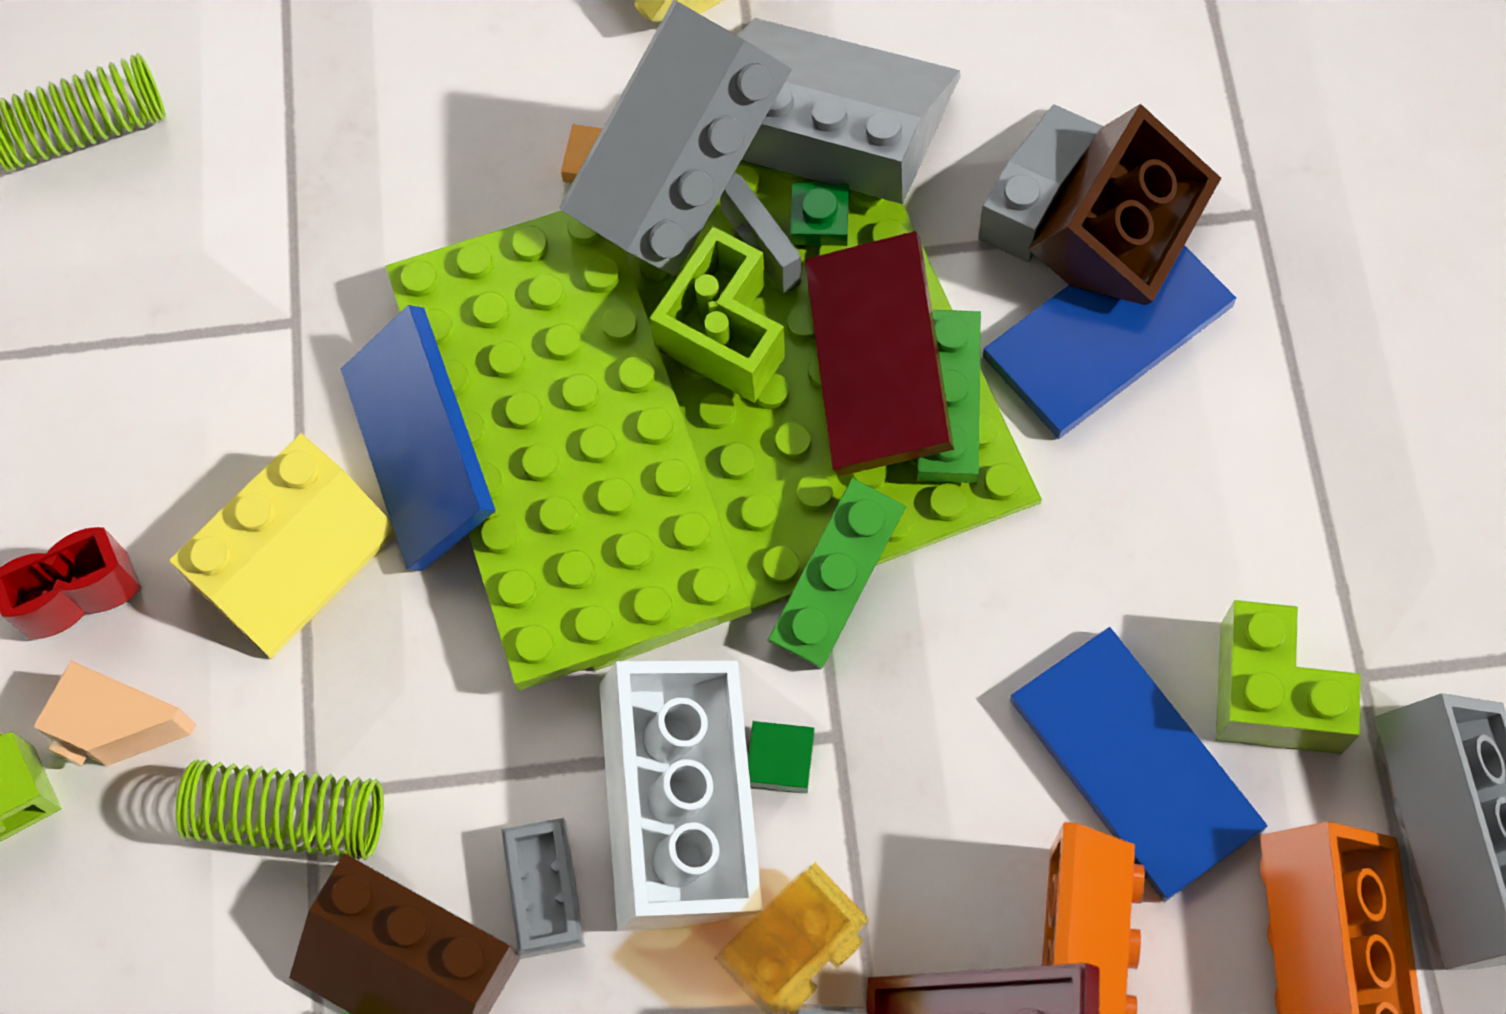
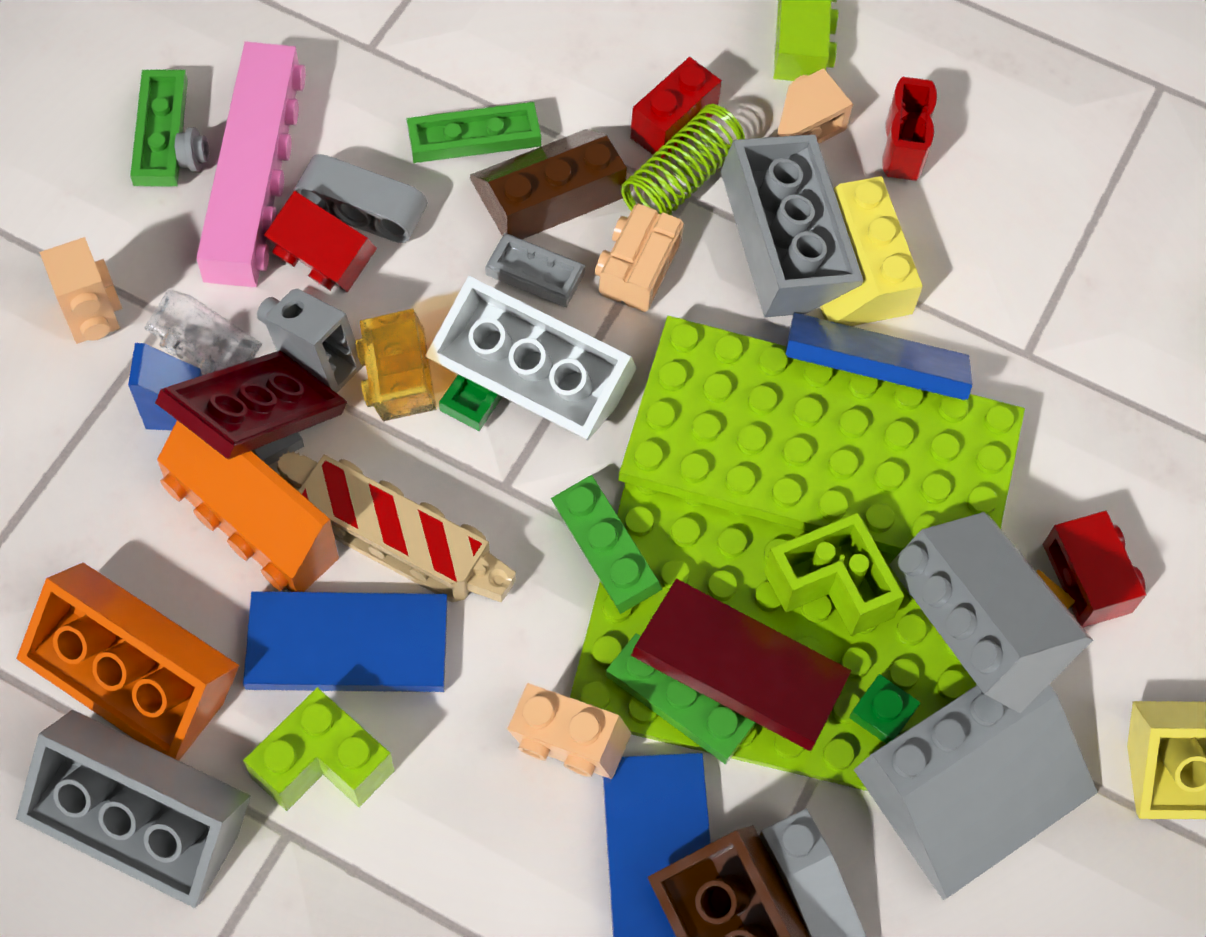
camera: 115 degrees right, 5 degrees down
(197, 874) = (673, 105): none -> red brick
(294, 632) = (789, 223): none -> light grey slope
(446, 777) = (640, 256): none -> light nougat brick
(526, 122) = (1095, 568): none -> red brick
(758, 229) = (891, 650): light grey plate -> none
(776, 835) = (468, 402): none -> green plate
(780, 756) = (515, 442): green tile -> none
(986, 800) = (397, 531): none -> tan hinge
(1071, 461) = (569, 731): none -> light nougat brick

